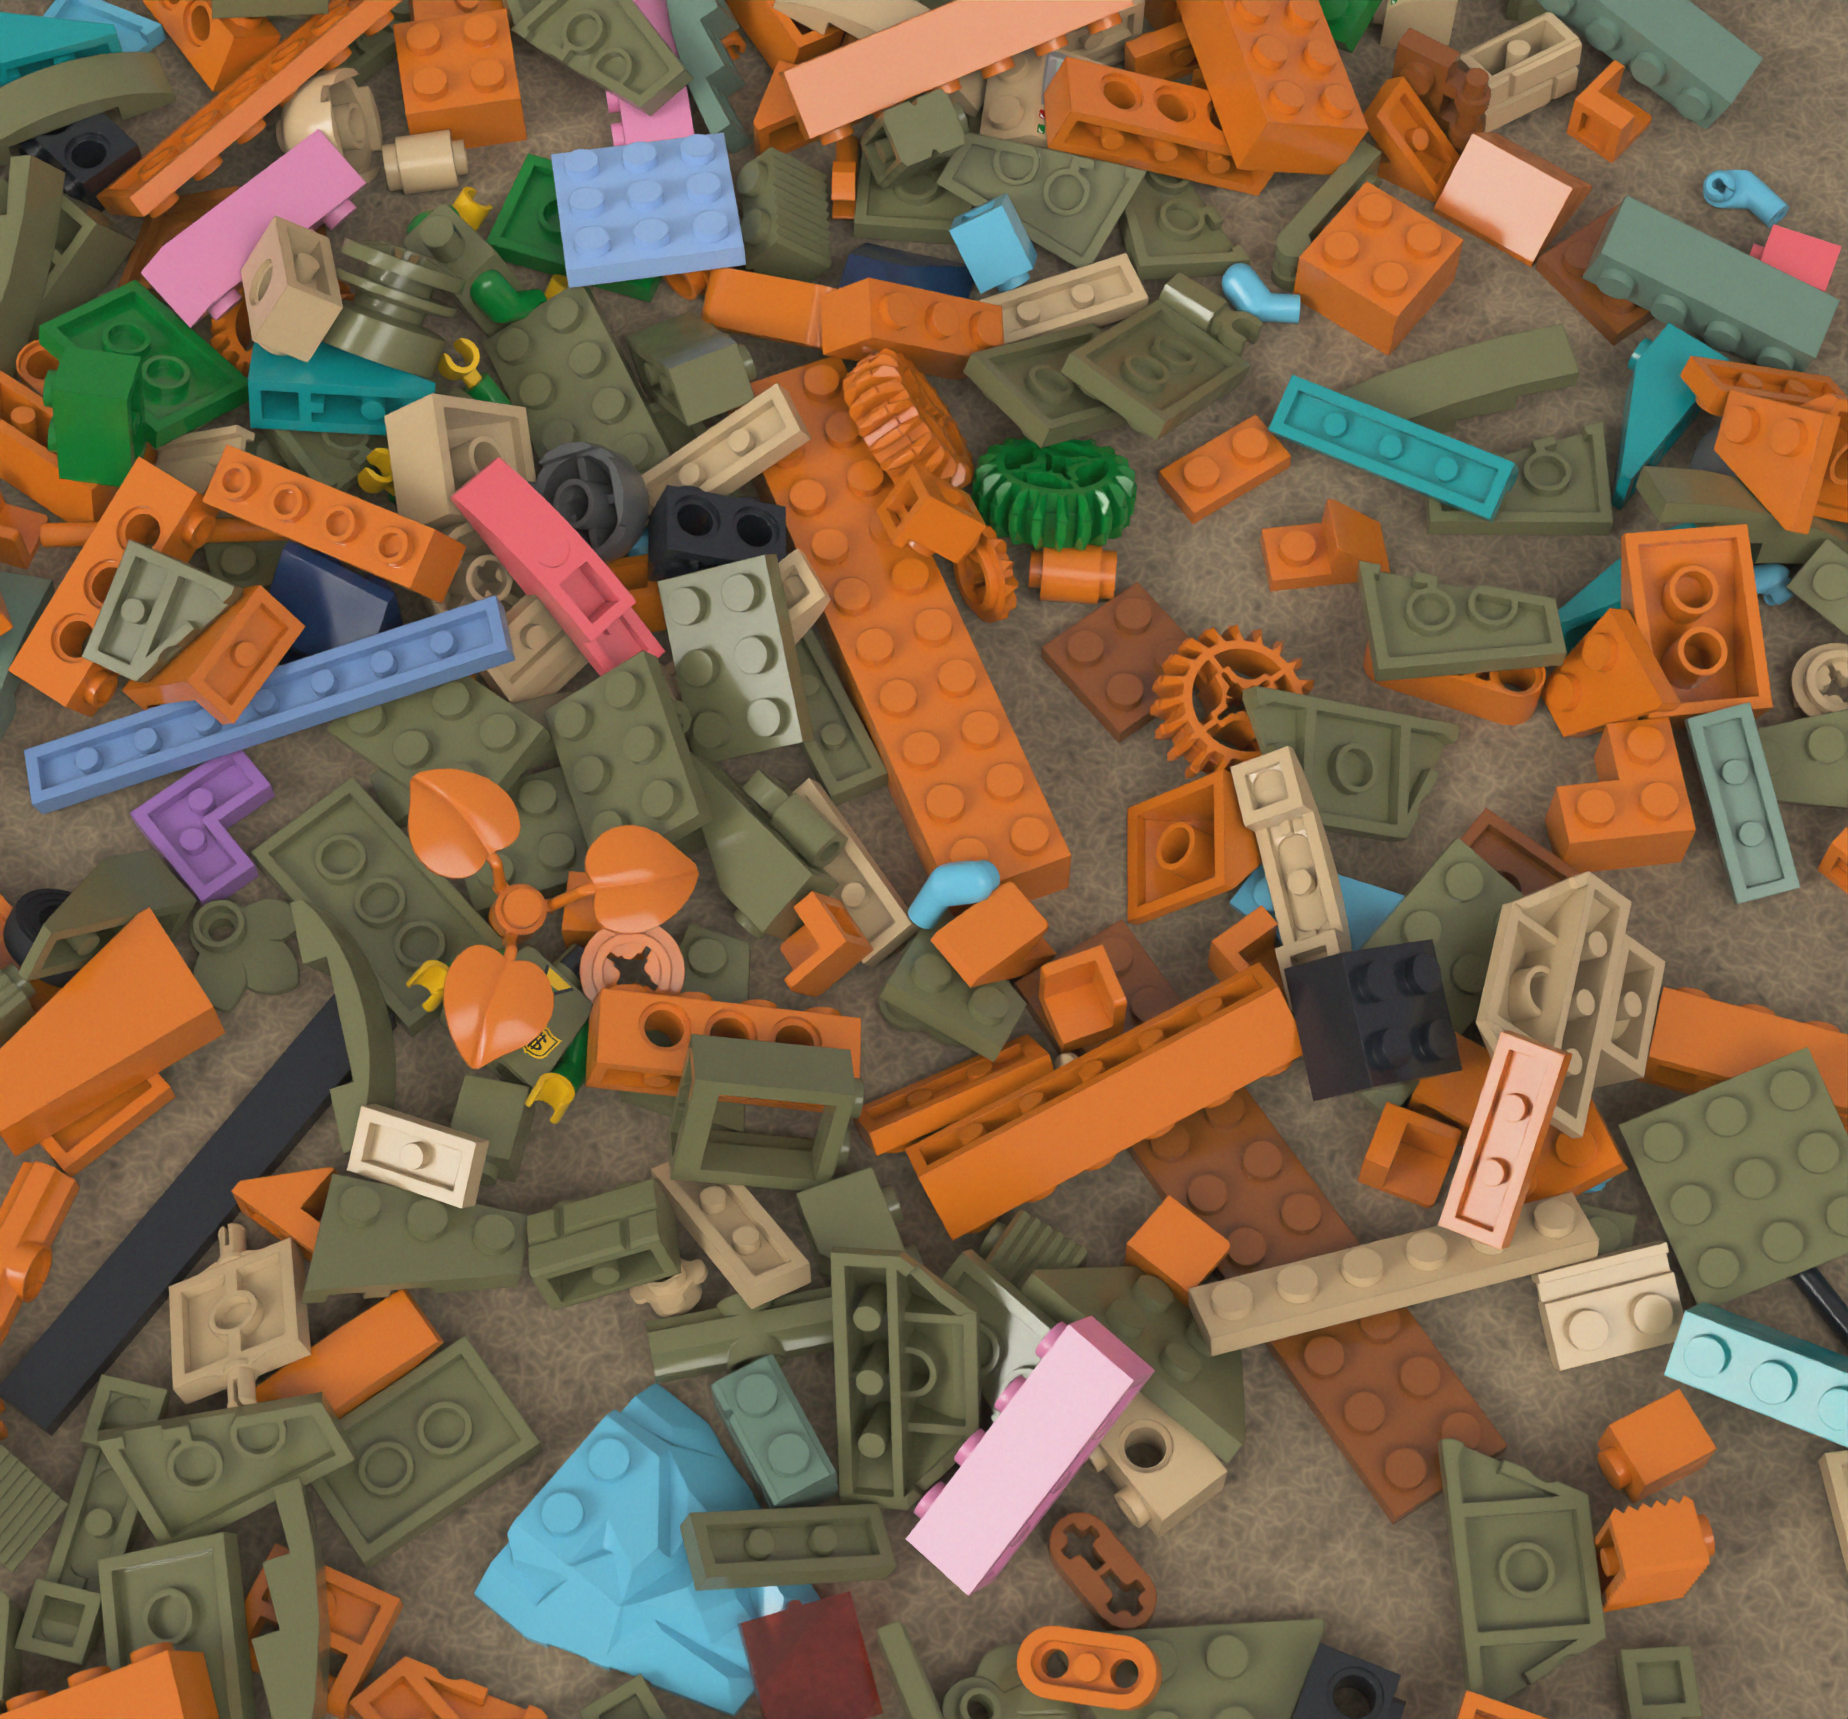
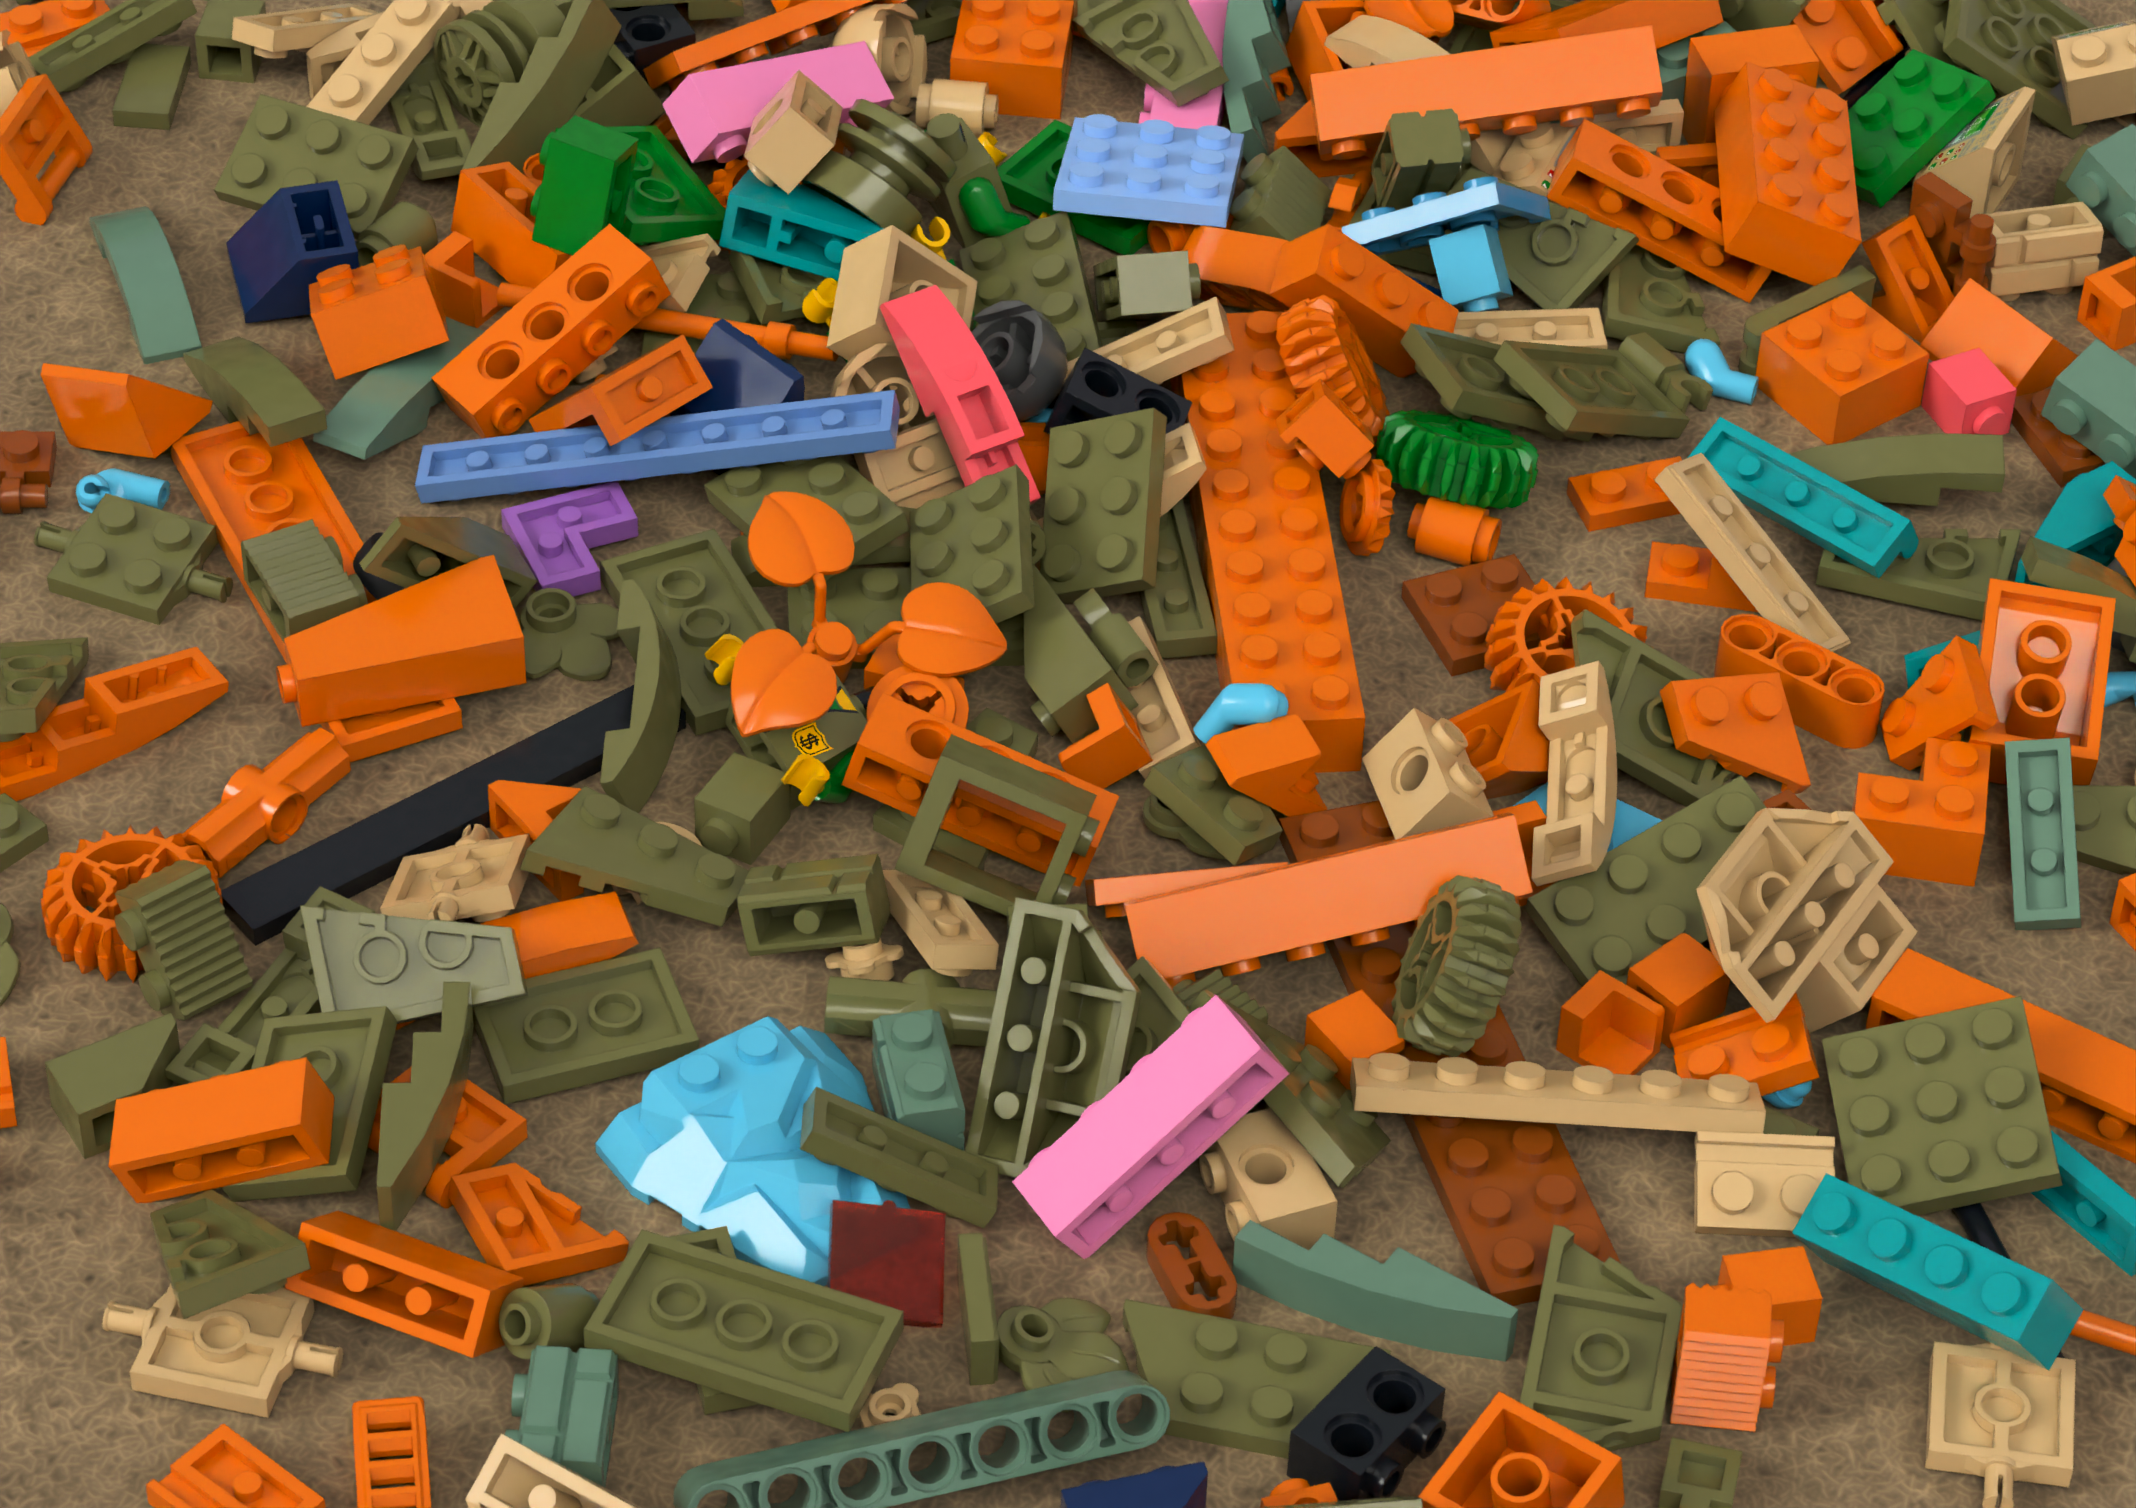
camera: 15 degrees right, 20 degrees down
(155, 612) = (581, 343): olive wing -> none
(334, 523) = (779, 313): orange brick -> none
(418, 1155) = (670, 792): tan plate -> none
(950, 202) = (1432, 213): none -> dark azure wing
(1082, 999) = (1332, 813): orange panel -> none
(1091, 1668) = (1154, 1317): orange plate -> none
(1155, 920) = (1425, 776): none -> tan brick
(1266, 1168) = (1456, 966): none -> olive gear
(1318, 1557) = (1393, 1300): none -> sand green slope
(1349, 519) = (1748, 552): none -> tan tile
(1372, 1019) = (1600, 875): black brick -> none
(1421, 751) = (1738, 724): none -> orange wing
(1451, 630) = (1794, 631): olive wing -> none
(1505, 269) = (1968, 395): none -> coral brick
(1505, 1139) = (1691, 984): plate -> none

